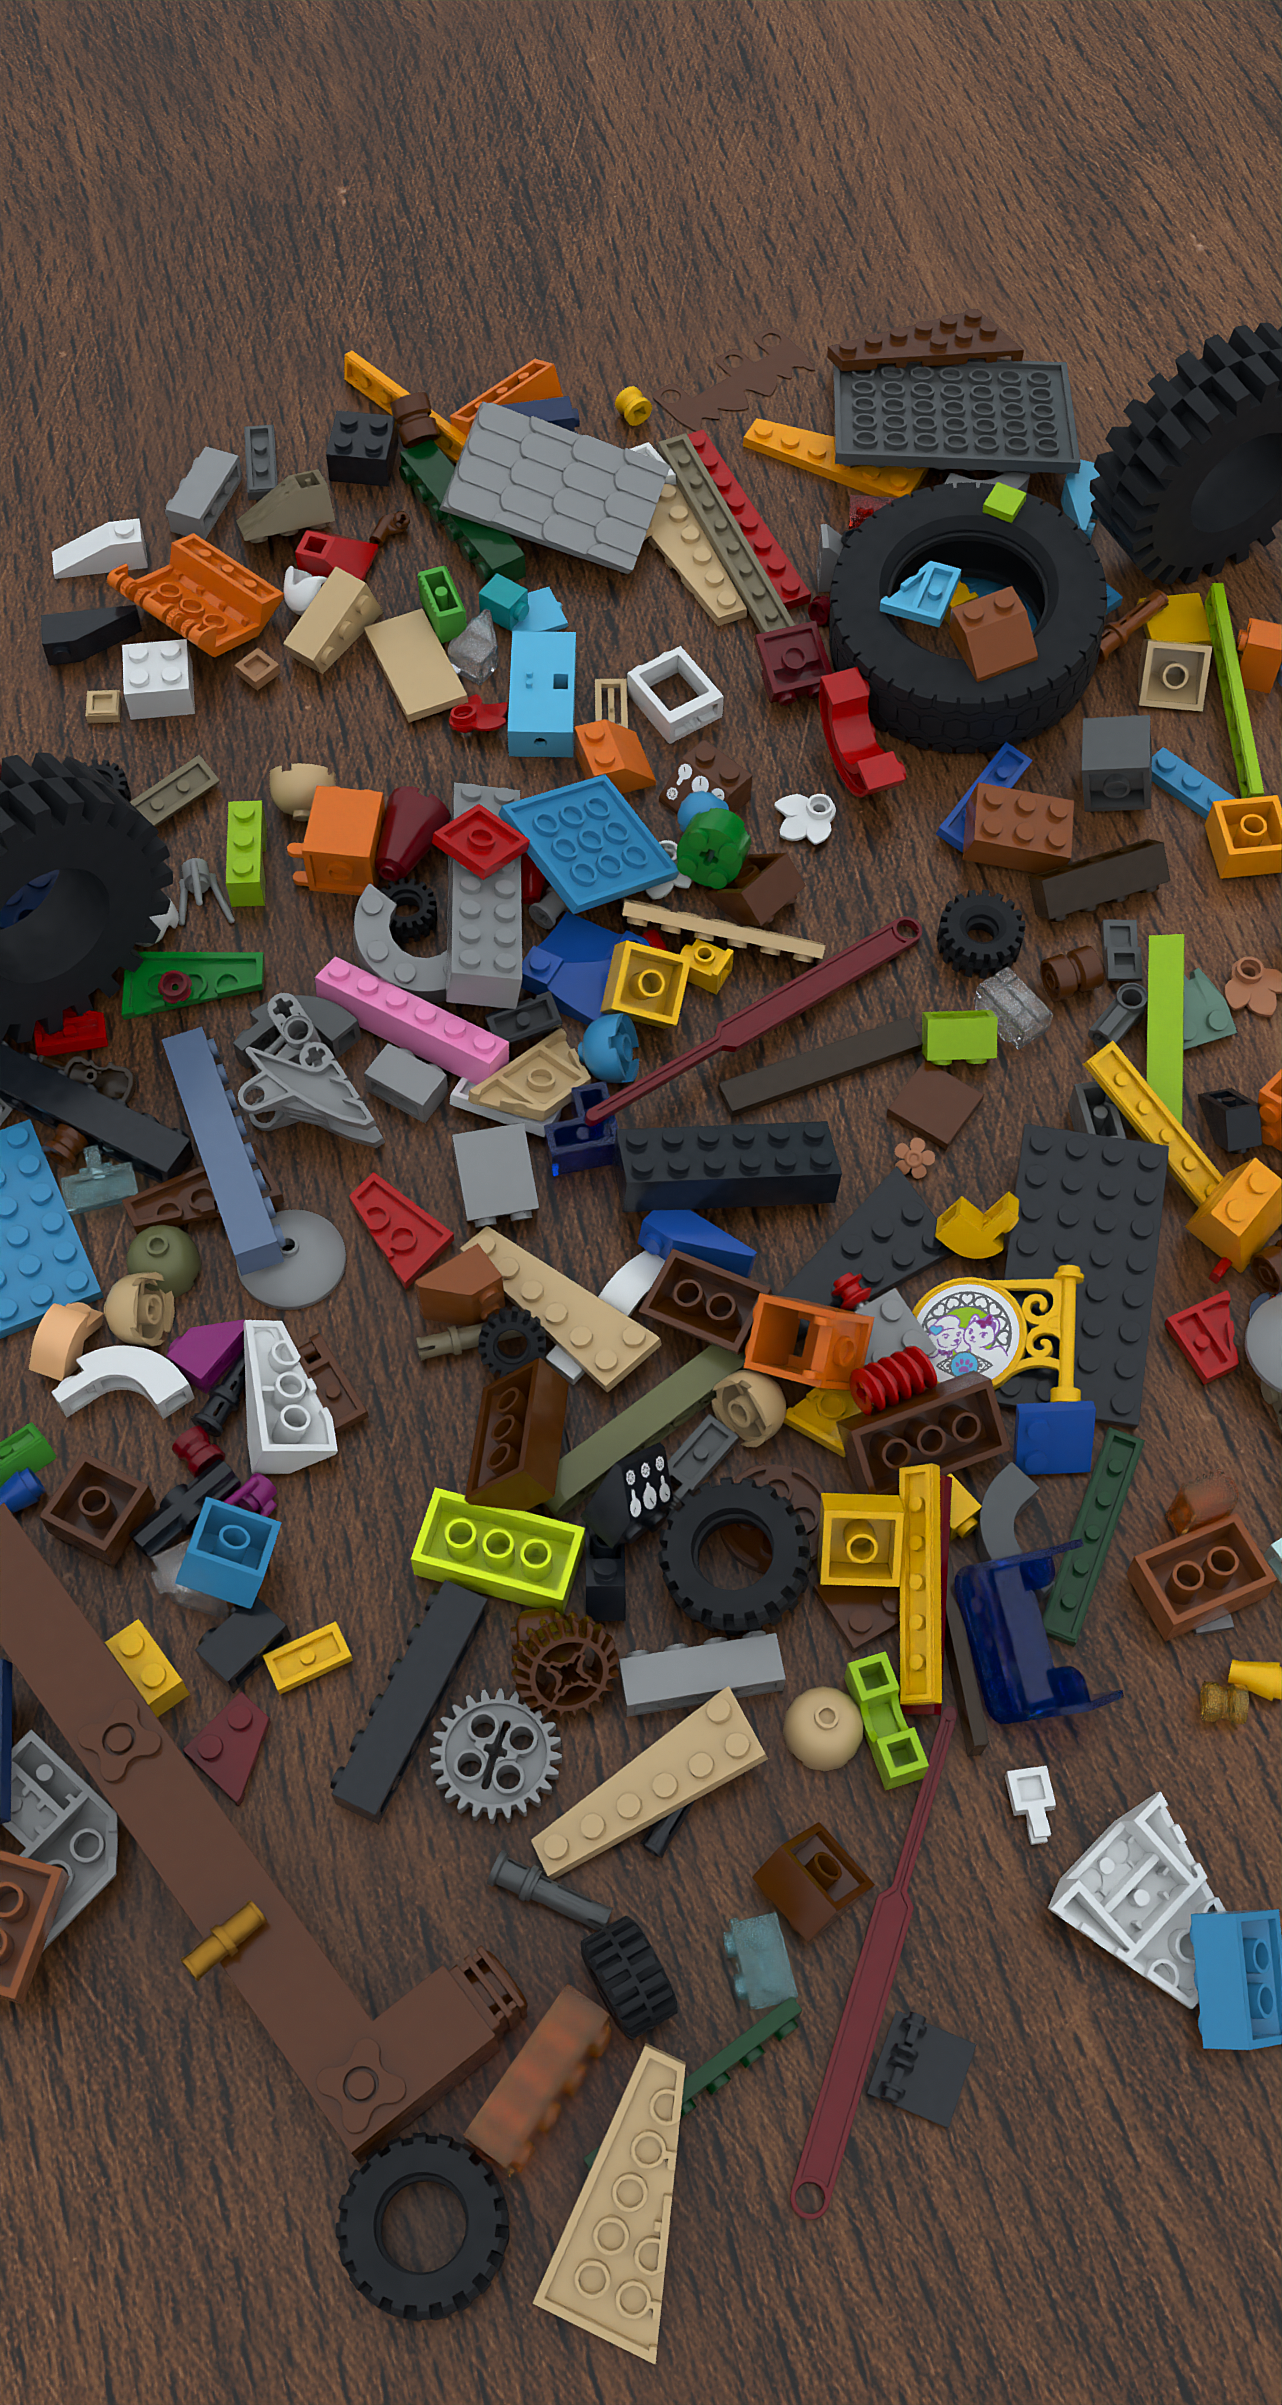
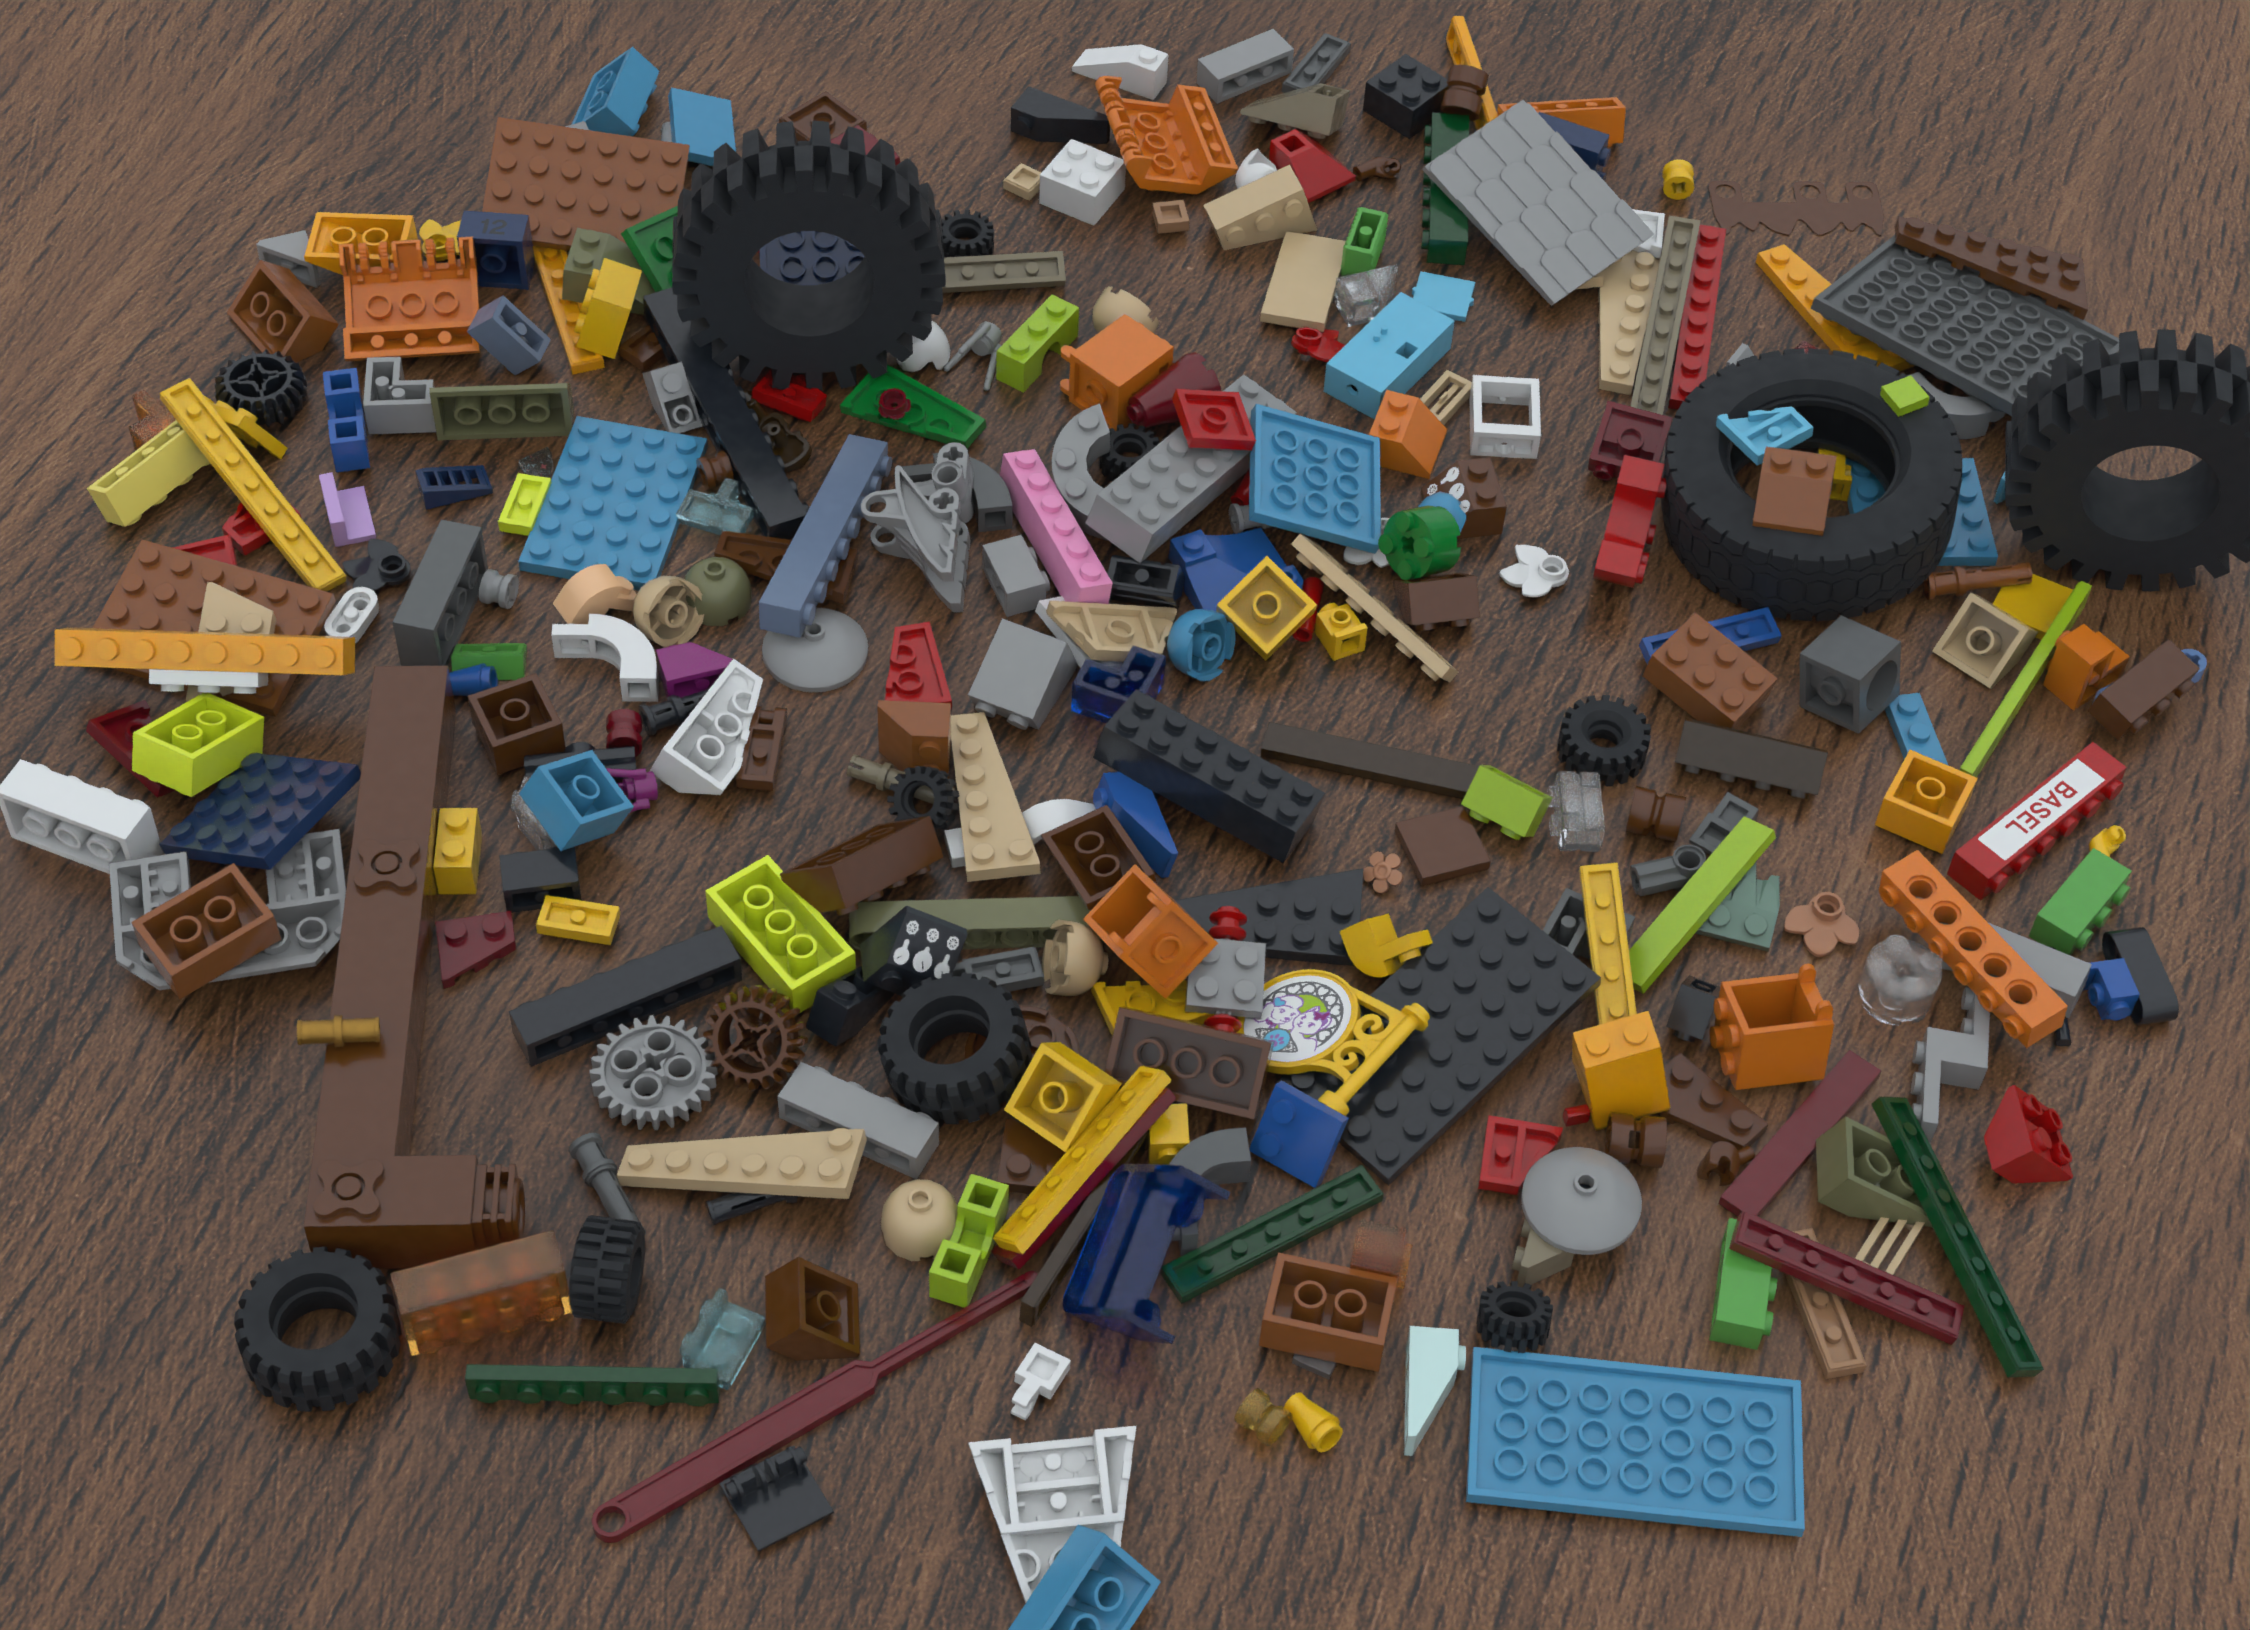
camera: 35 degrees right, 10 degrees down
(505, 601) = (1419, 269): teal brick -> none
(616, 2239) = (444, 1431): tan wing -> none
(773, 1010) = (1364, 691): dark red piece -> none
(892, 1379) = (1193, 997): red piece -> none

